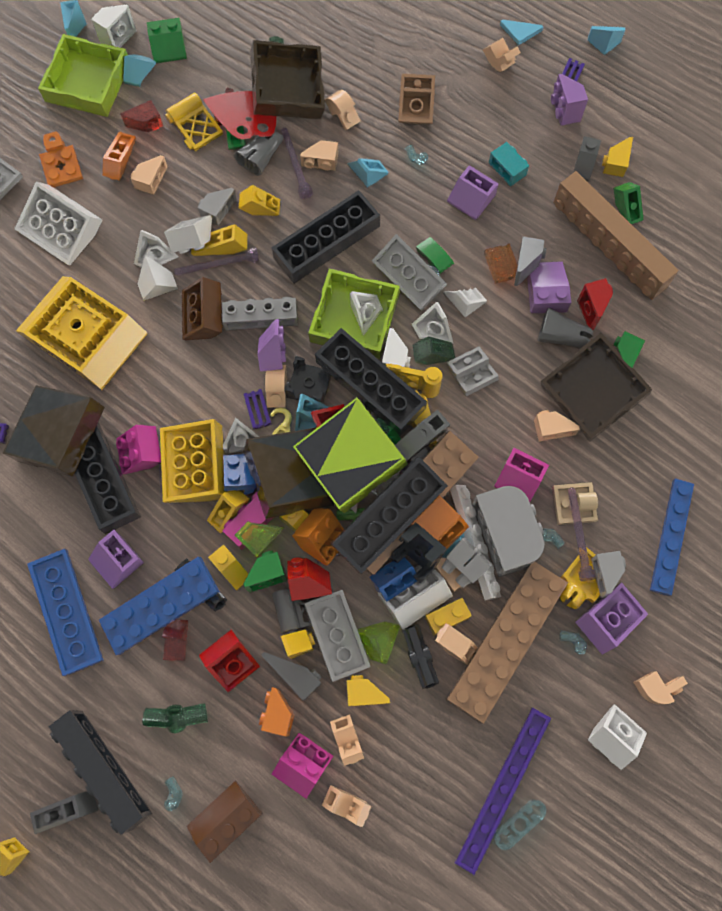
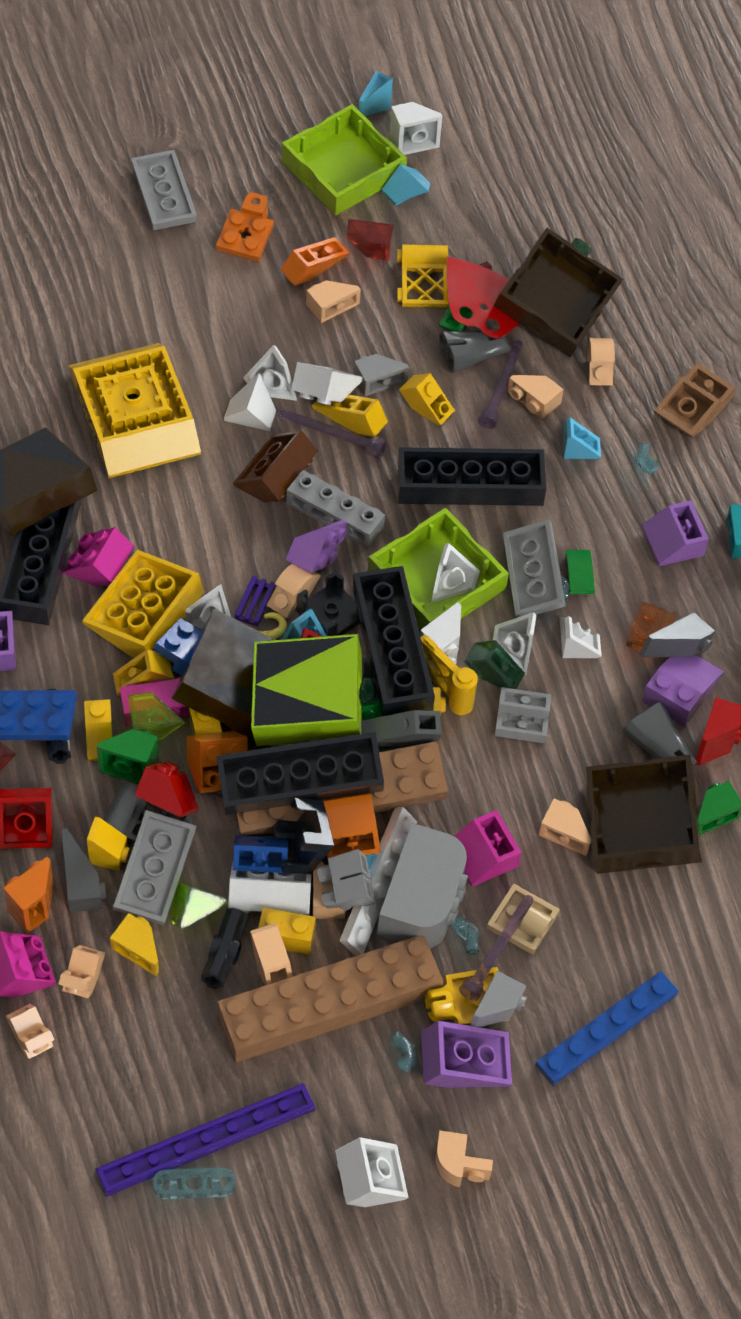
camera: 30 degrees right, 15 degrees down
(57, 223) = (195, 287): white slope -> none
(166, 40) = (462, 176): green slope -> none

